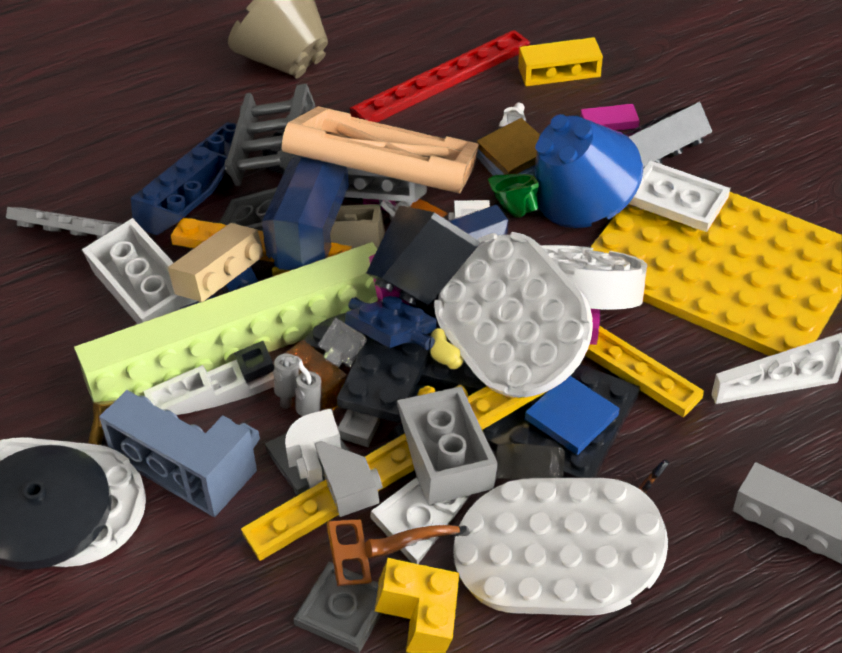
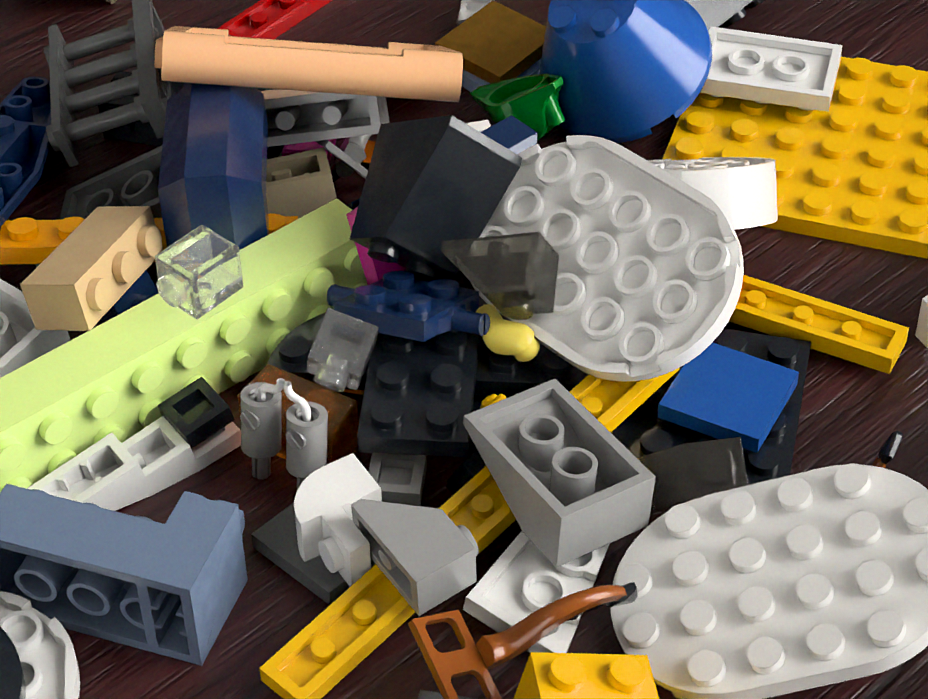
camera: 15 degrees left, 5 degrees down
(269, 279) = (199, 271): none -> clear brick
(453, 313) = (509, 270): none -> clear smoke slope

